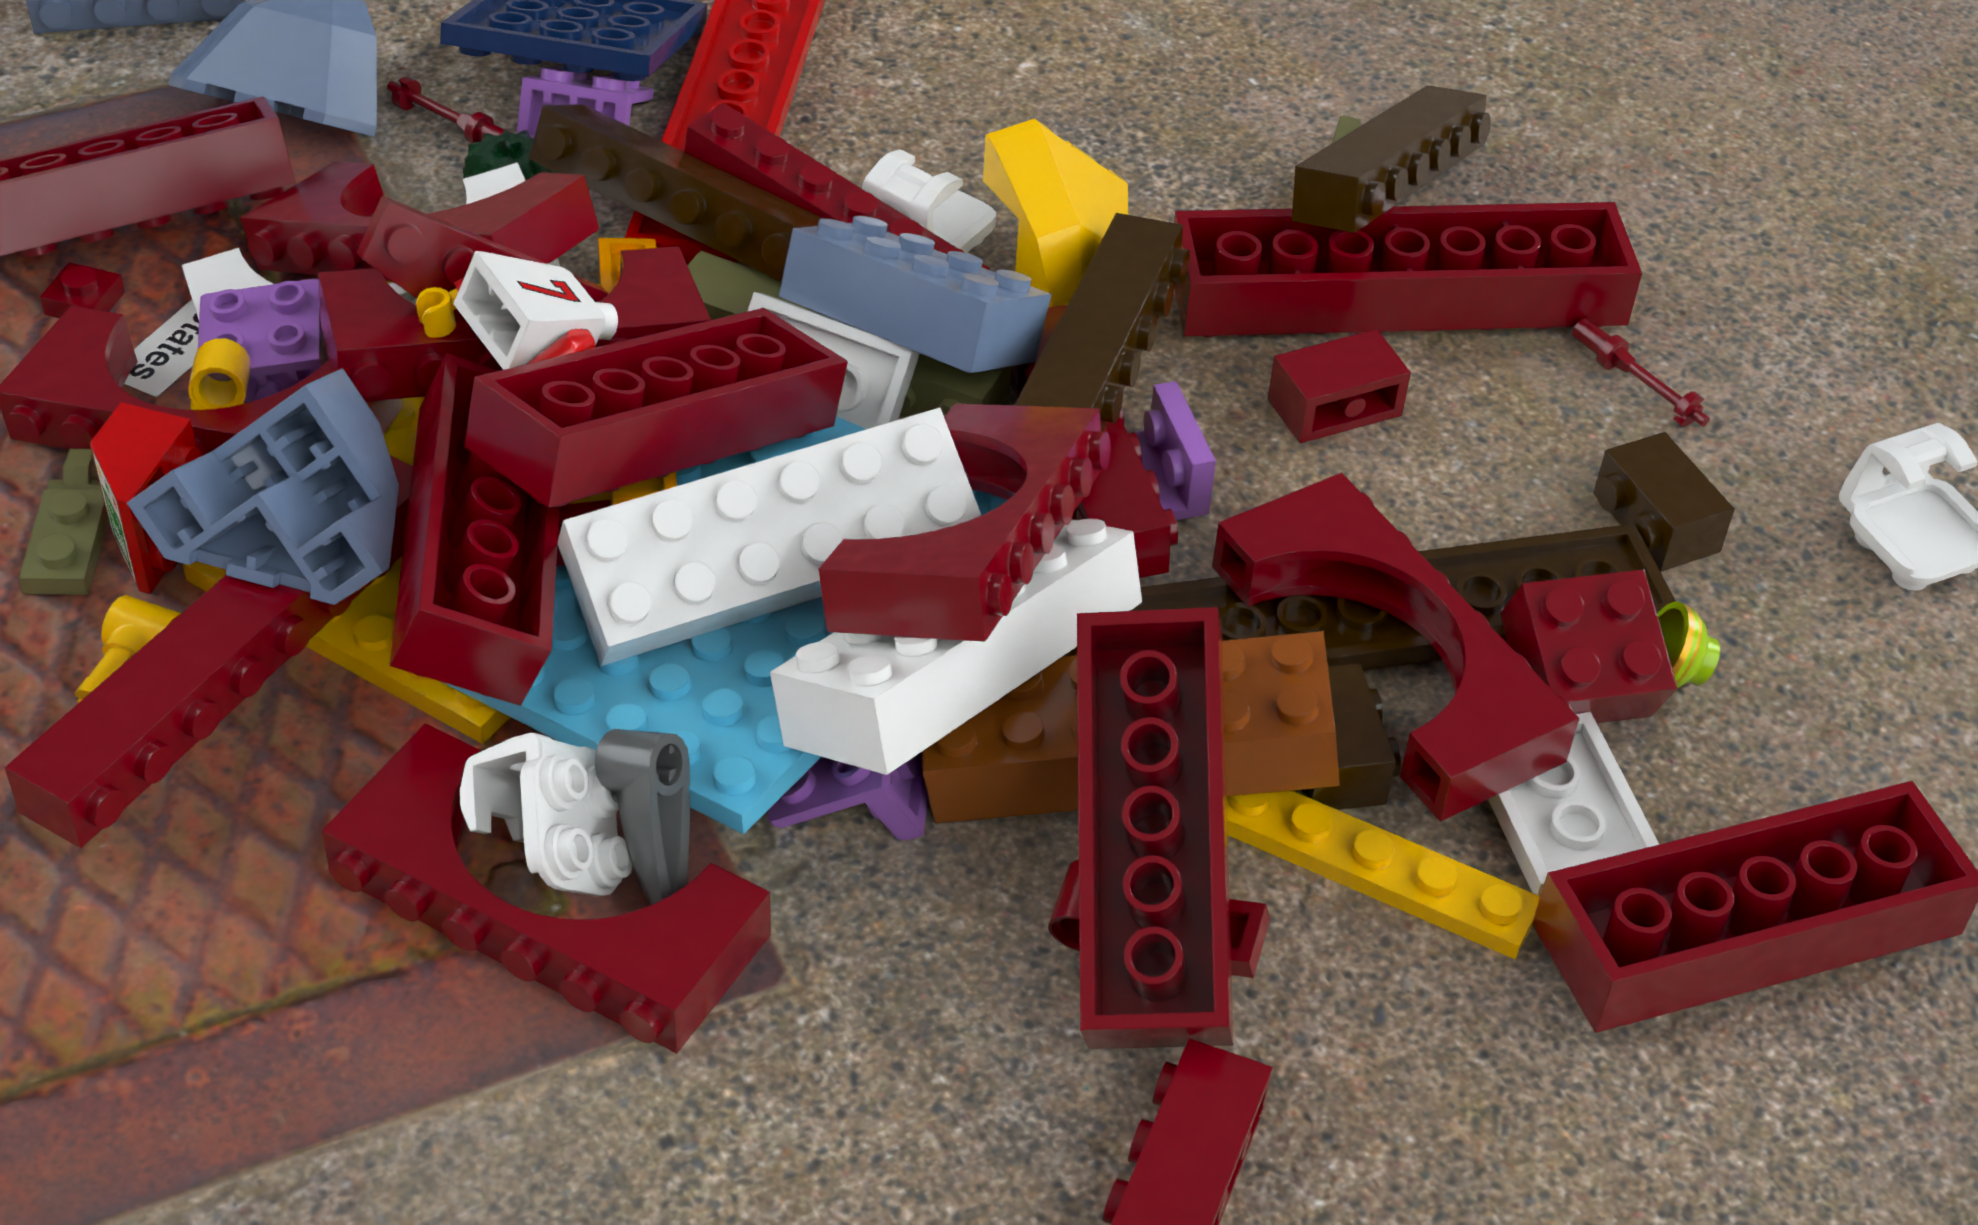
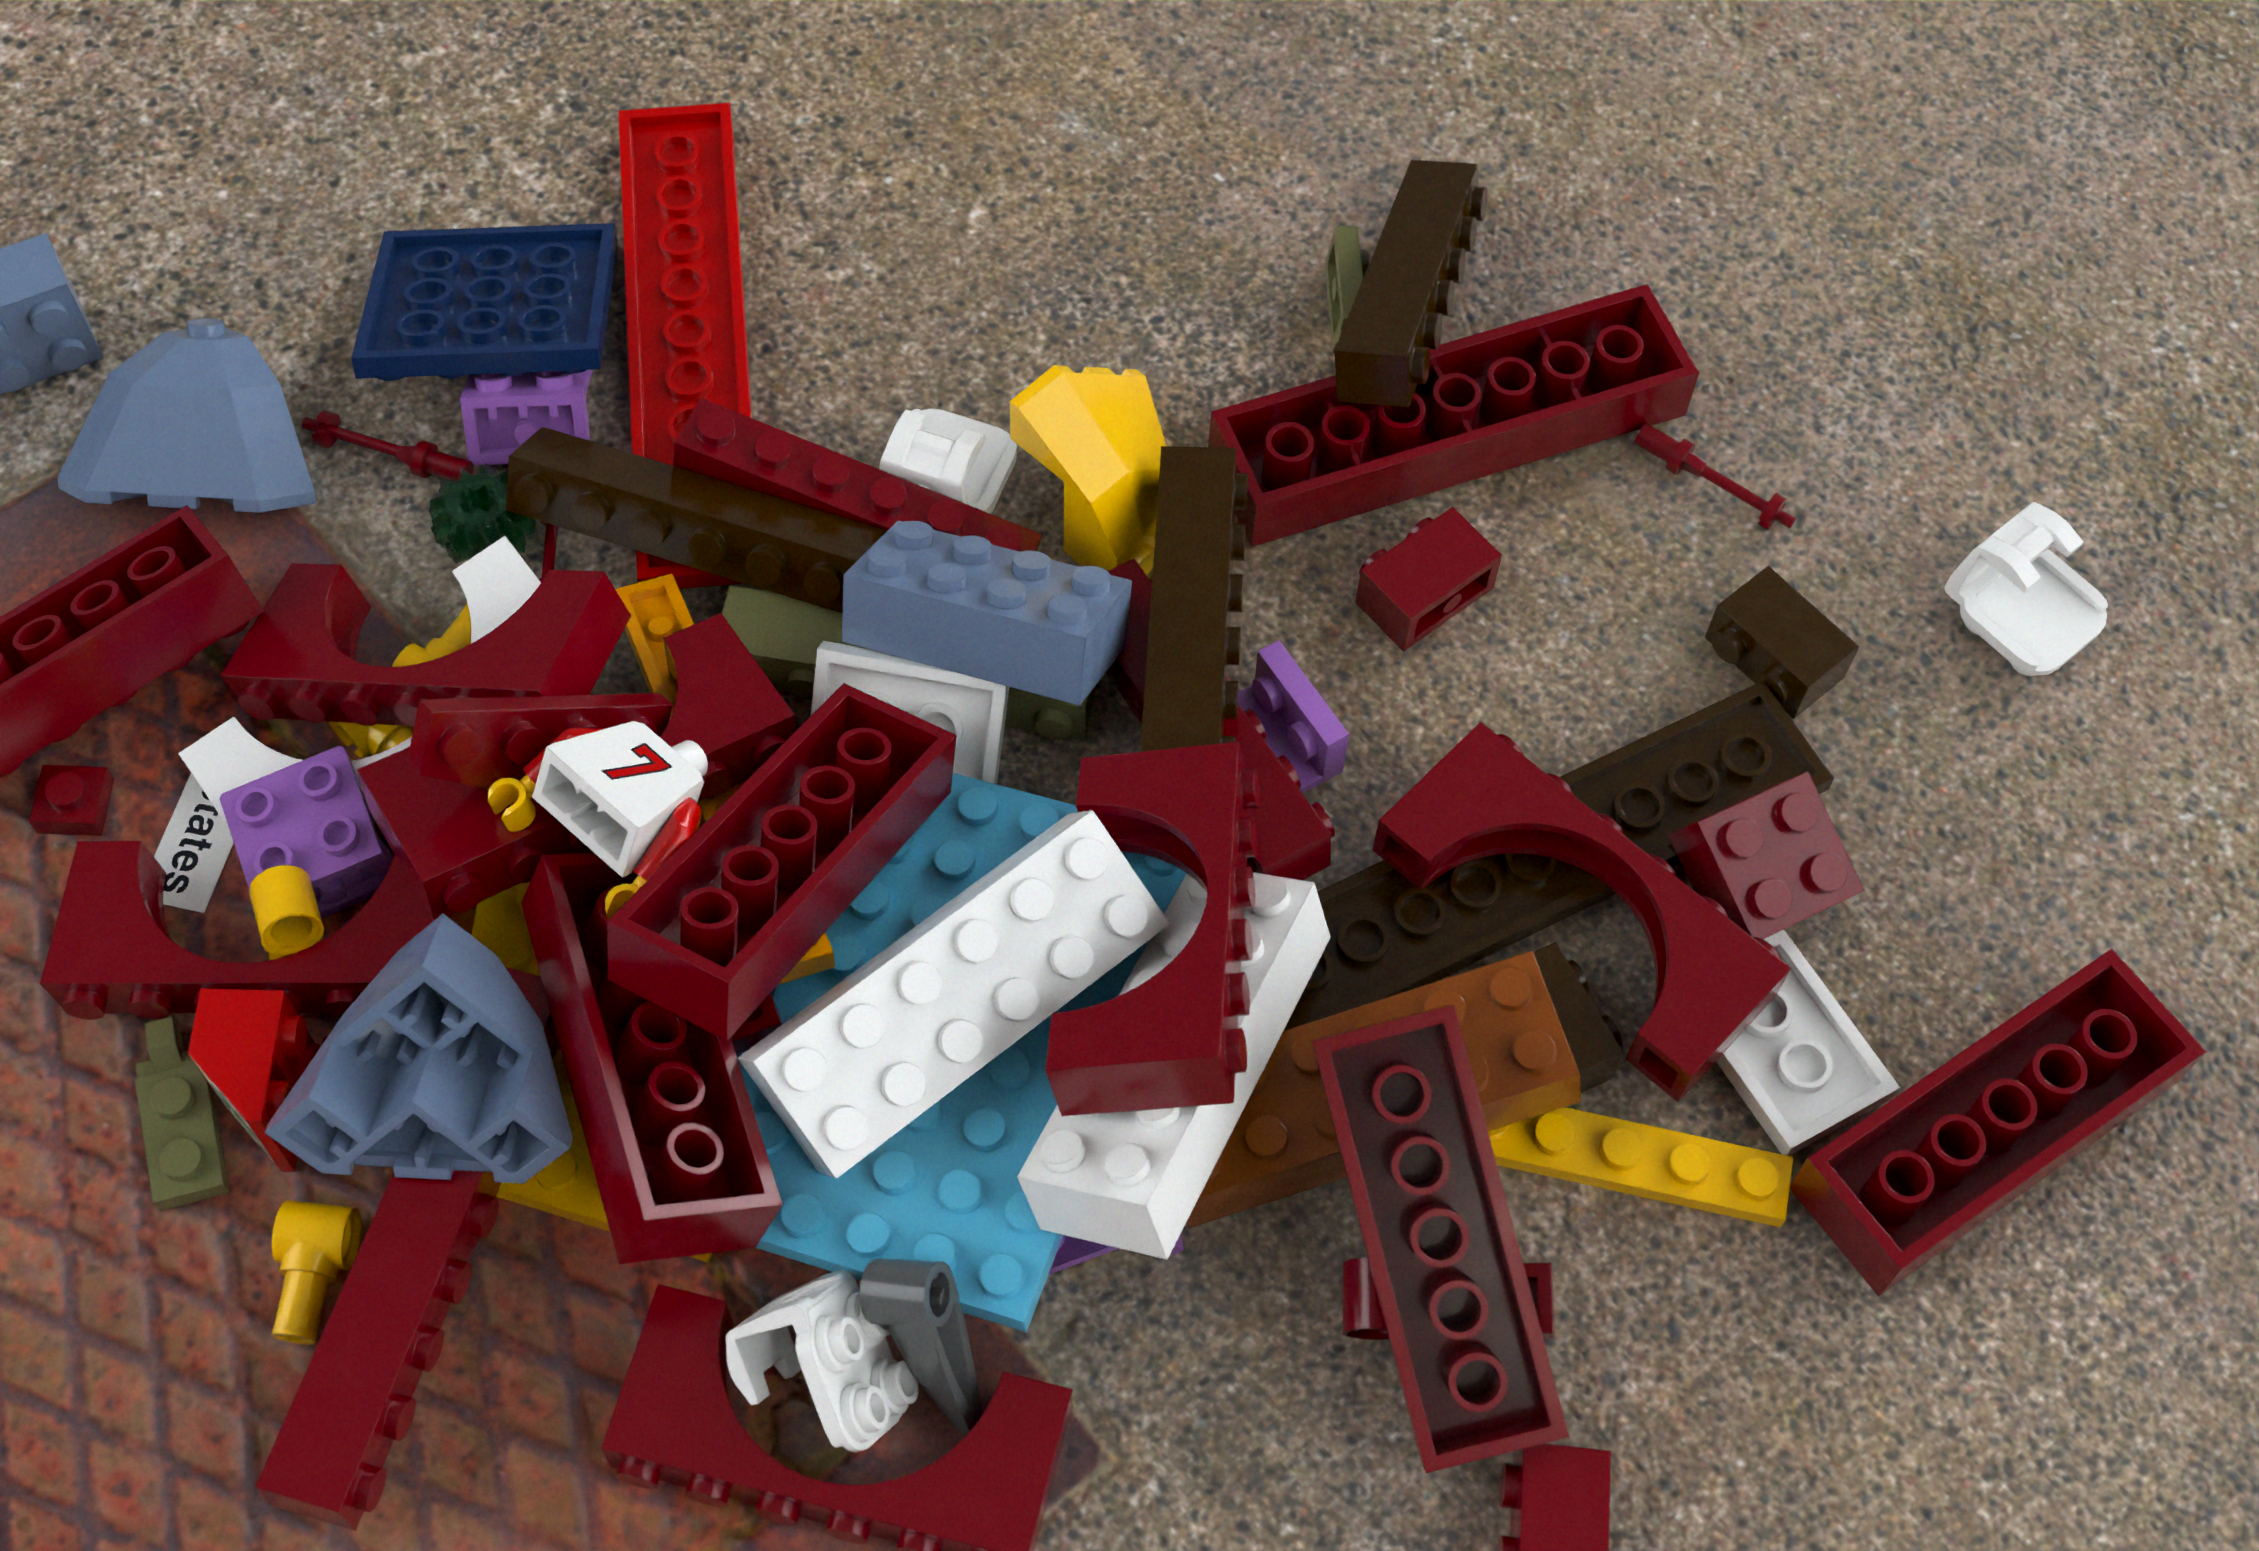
camera: 15 degrees left, 15 degrees up
(1688, 644) = (1856, 820): lime piece -> none

